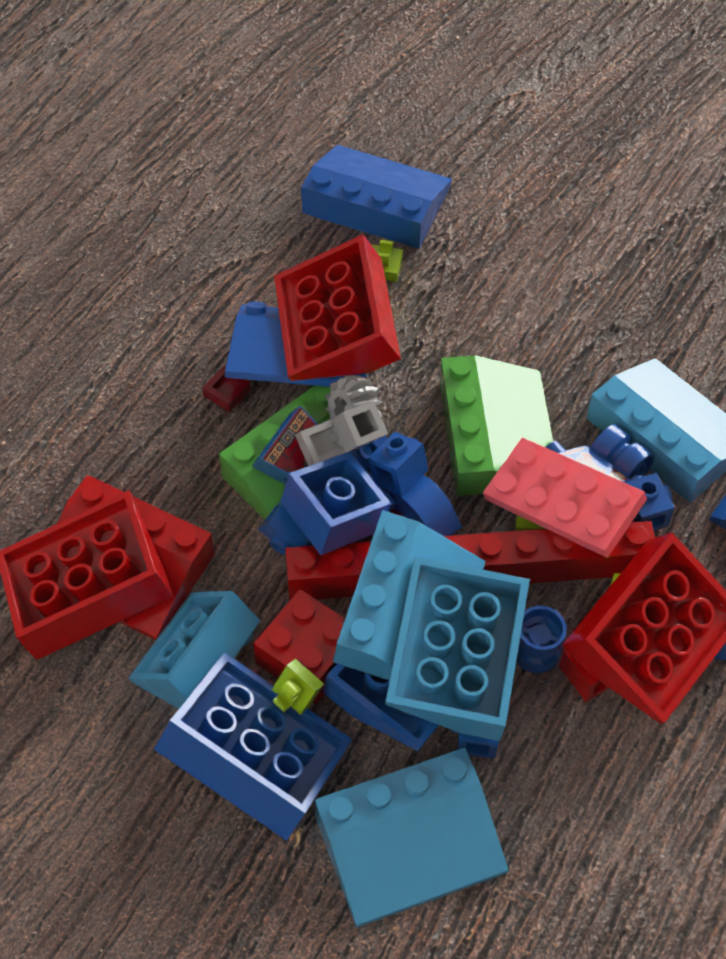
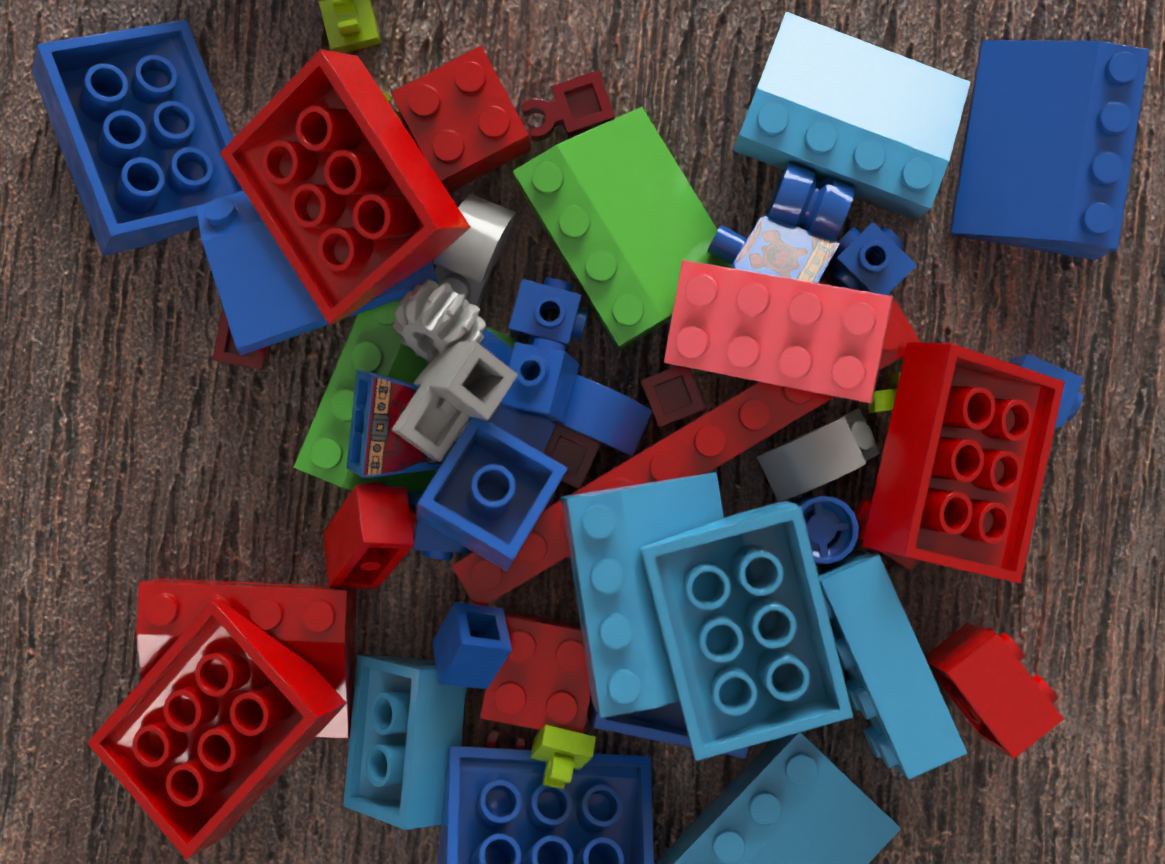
camera: 25 degrees left, 30 degrees up
(227, 261) = (136, 130): none -> blue slope
(242, 509) = (368, 536): none -> red brick
(272, 592) = (471, 645): none -> blue brick
(398, 390) = (472, 256): none -> light grey brick
(425, 328) = (462, 119): none -> red brick
(434, 441) = (537, 299): none -> blue brick
(479, 521) = (672, 395): none -> dark red plate
(497, 348) = (577, 105): none -> dark red plate
(543, 734) = (886, 668): none -> dark azure brick
(563, 590) = (819, 456): none -> light grey brick
(615, 783) = (994, 689): none -> red brick

